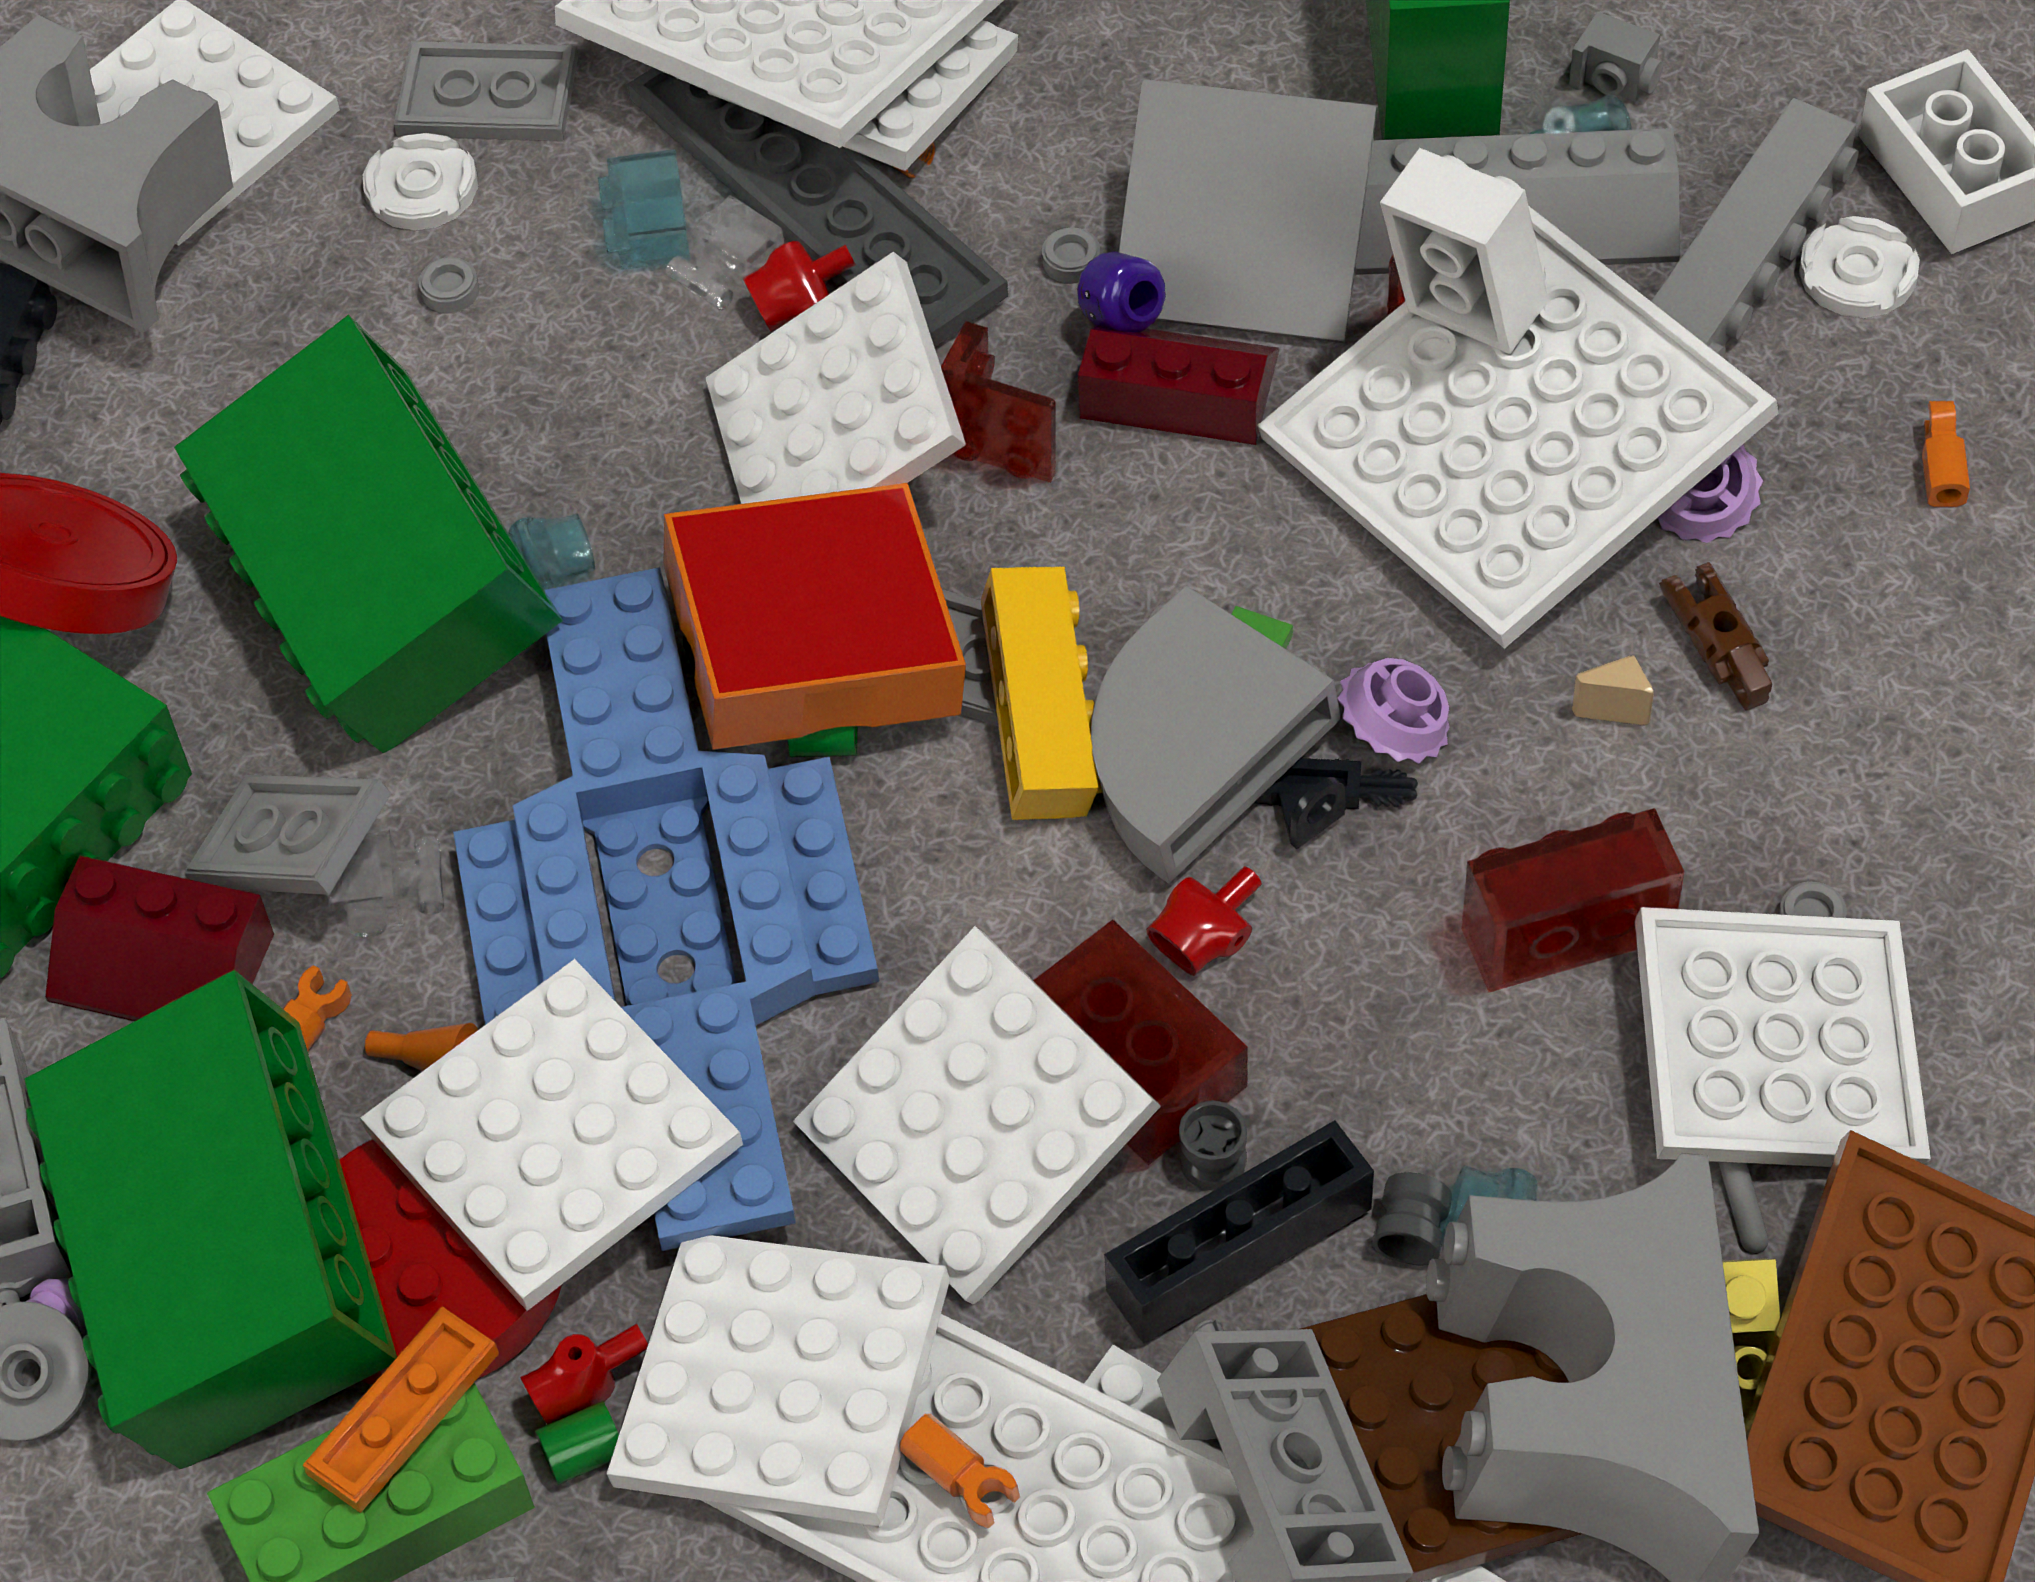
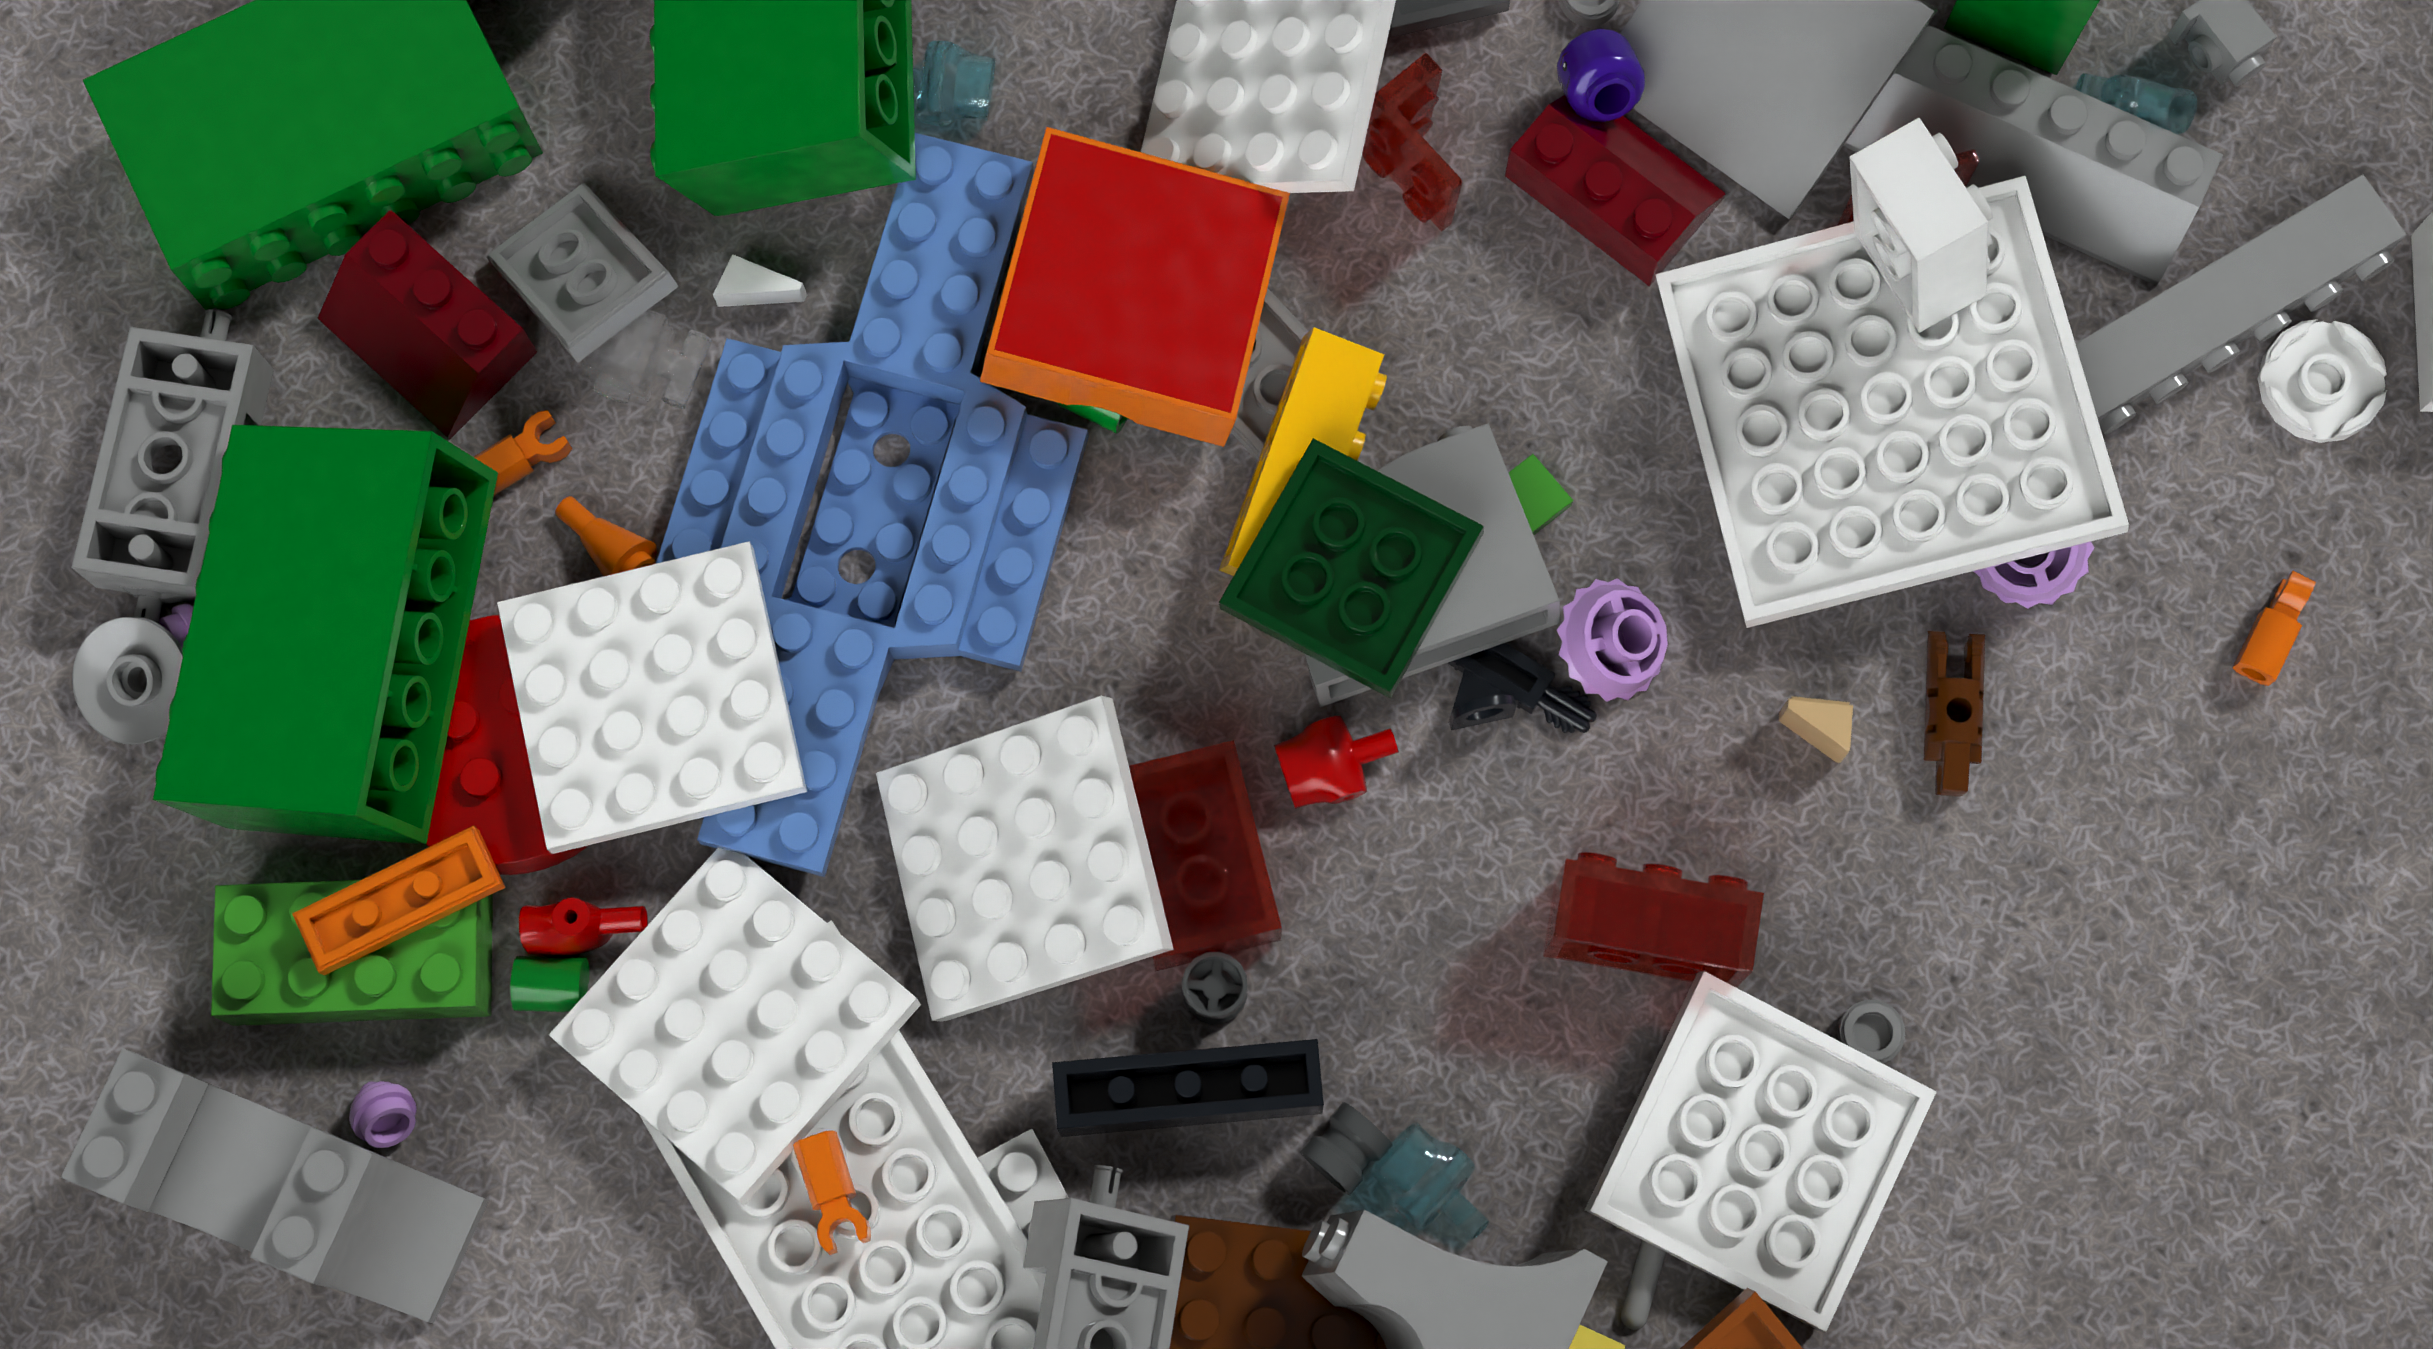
camera: 25 degrees right, 20 degrees up
(457, 783) = (753, 284): none -> white piece
(1137, 733) = (1351, 568): none -> dark green plate

